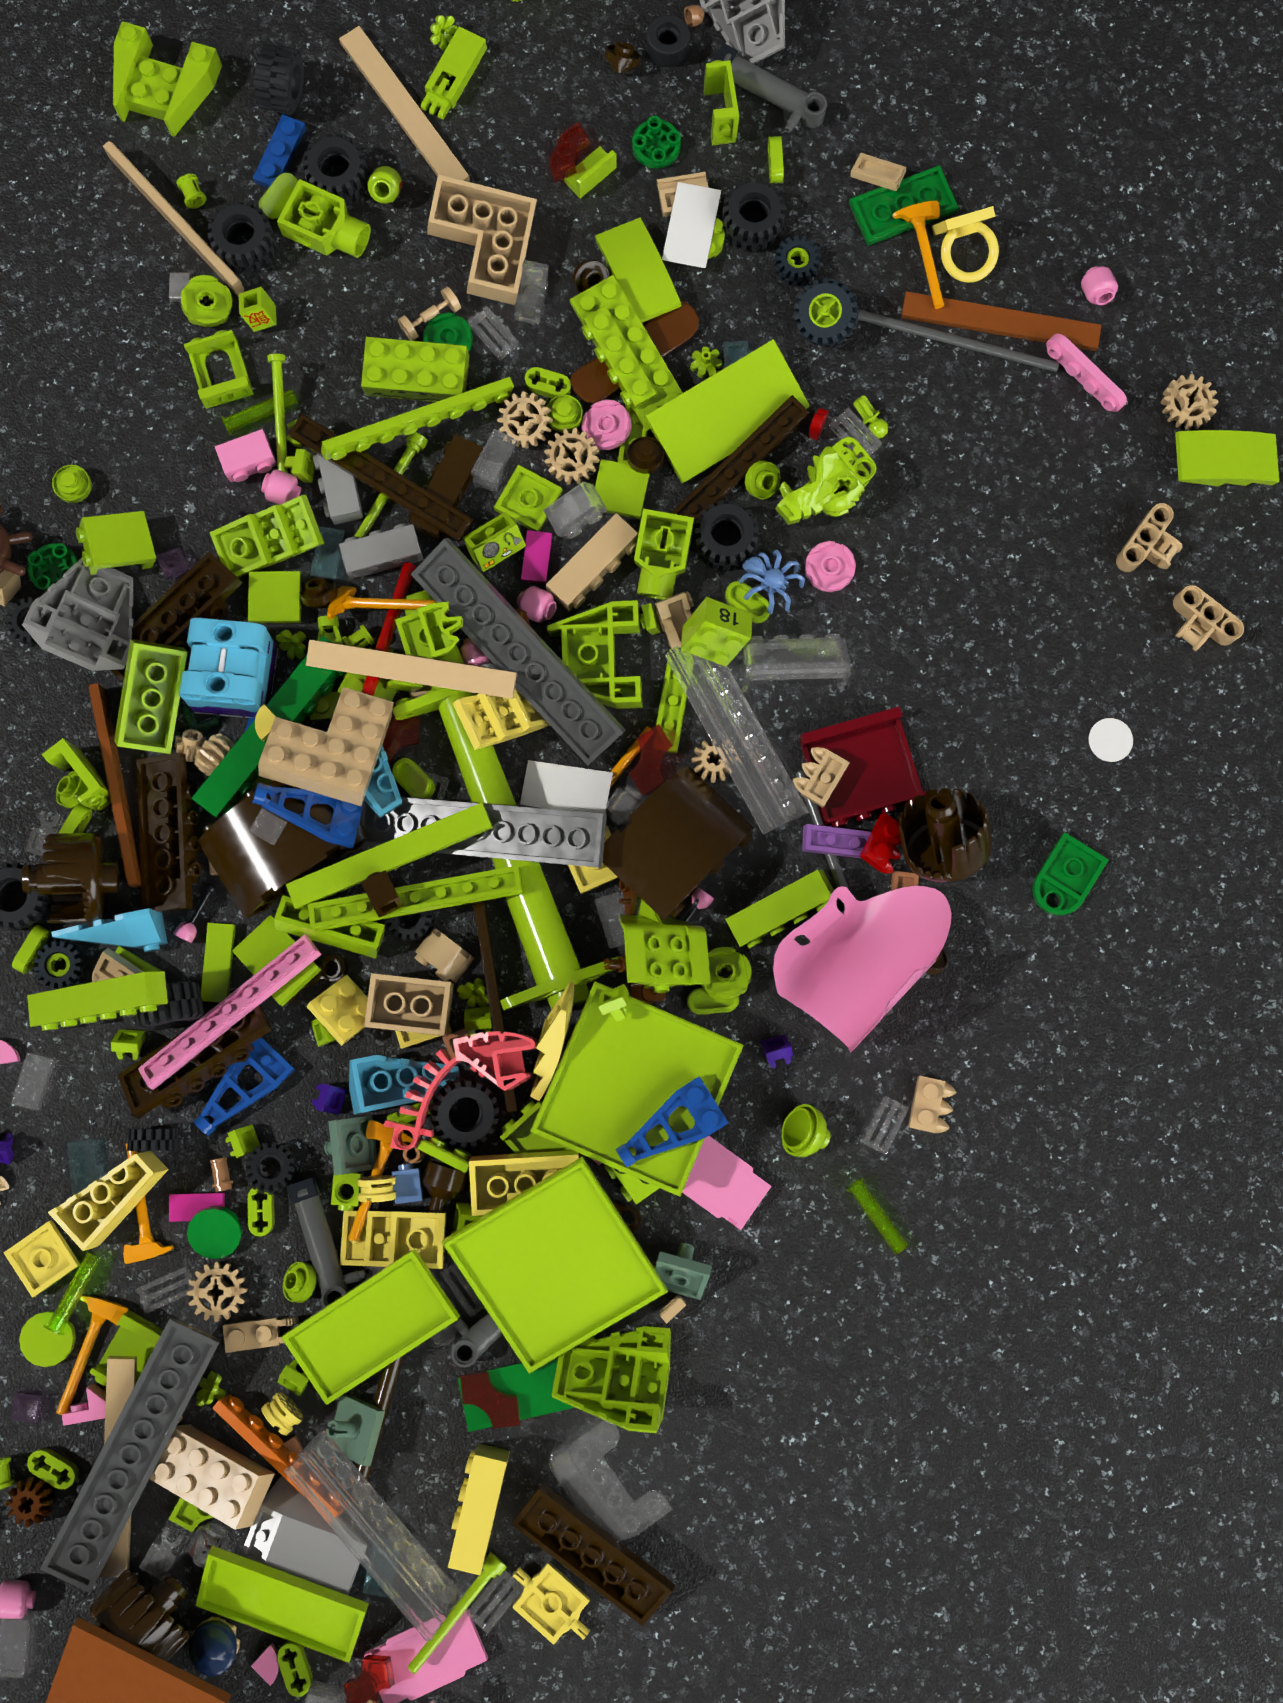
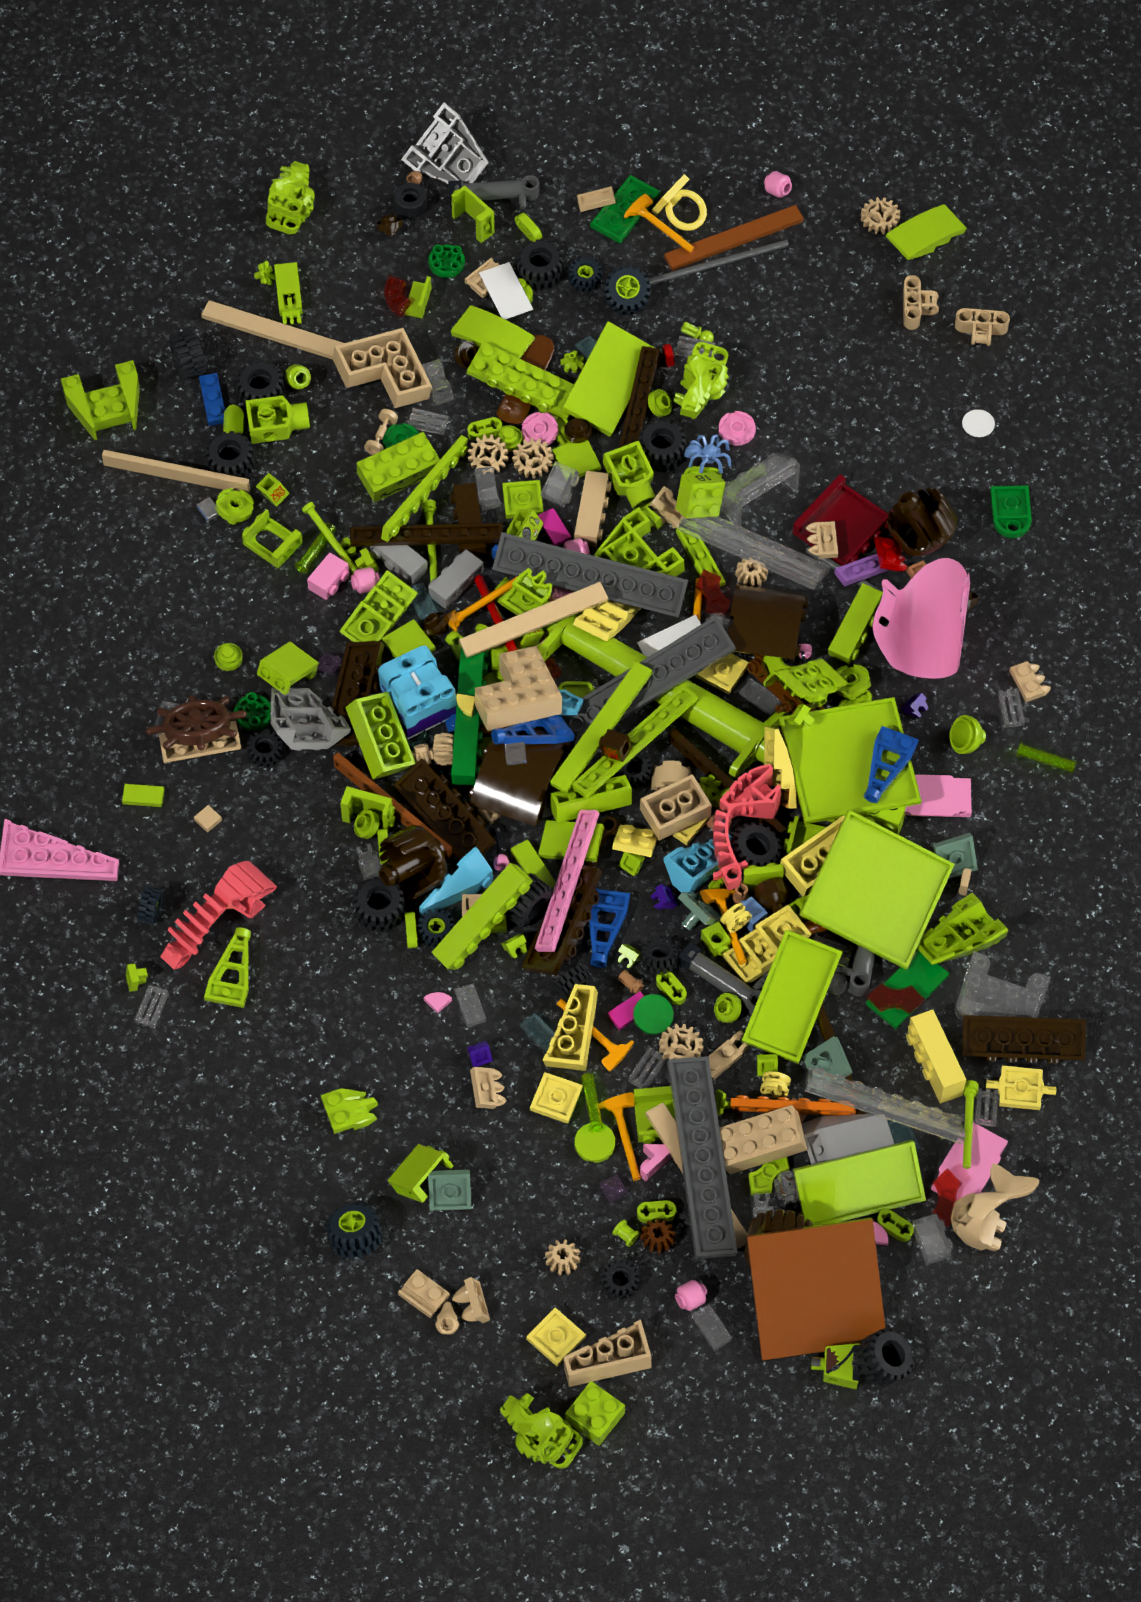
camera: 30 degrees left, 20 degrees down
(193, 196) = (174, 451): lime bush -> none
(292, 643) = (443, 662): lime plant -> none
(1086, 372) = (807, 234): bright pink plate -> none

